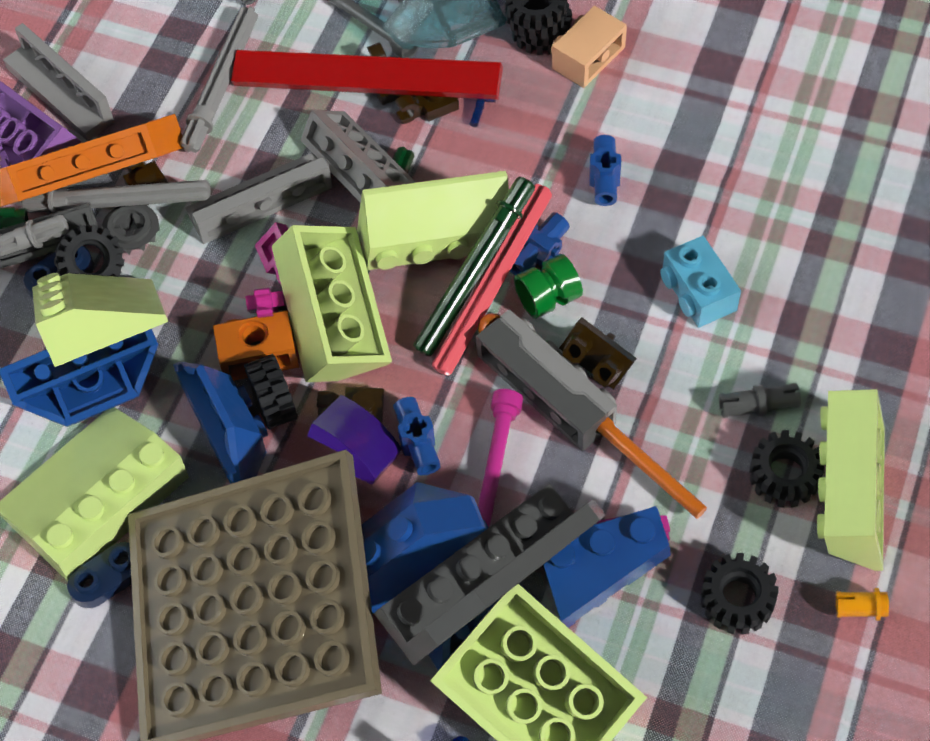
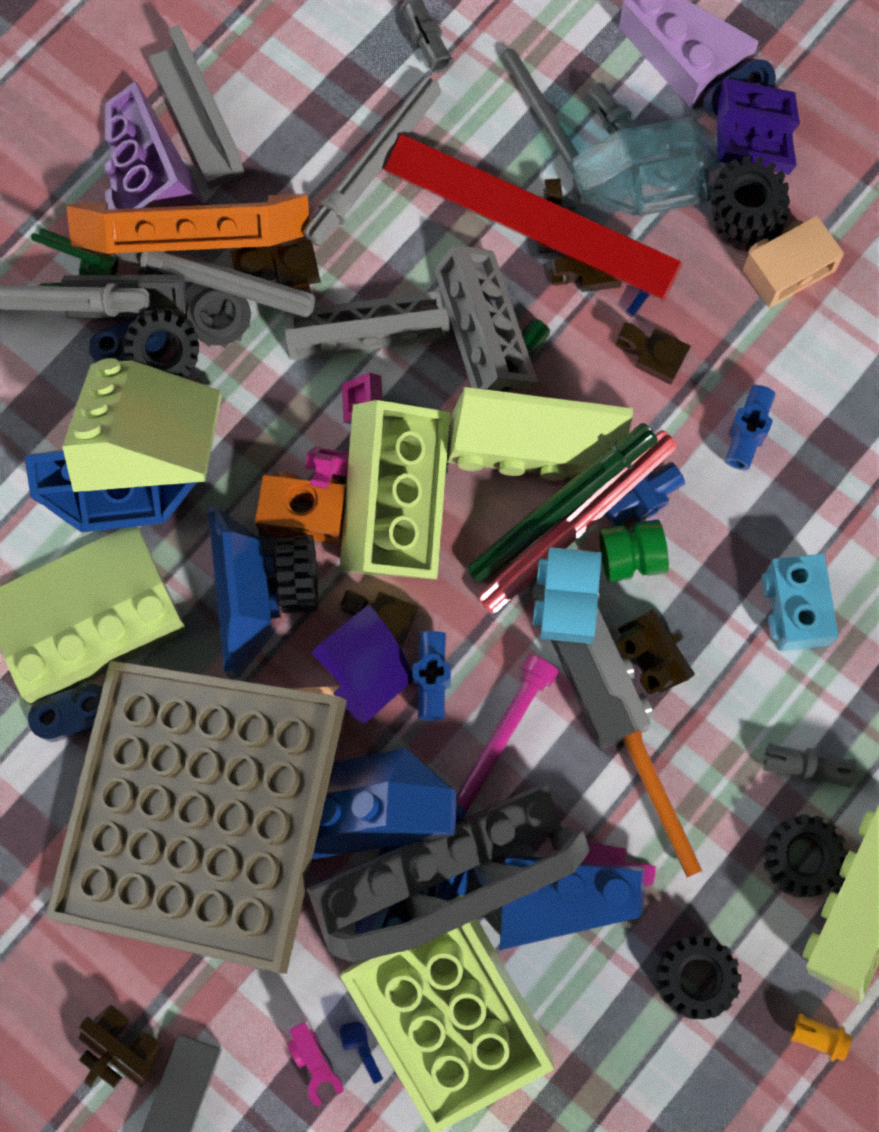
camera: 20 degrees right, 15 degrees up
(183, 168) = (297, 265): none -> dark brown plate
(508, 144) = (658, 355): none -> dark brown plate
(509, 326) = (569, 595): none -> medium azure brick

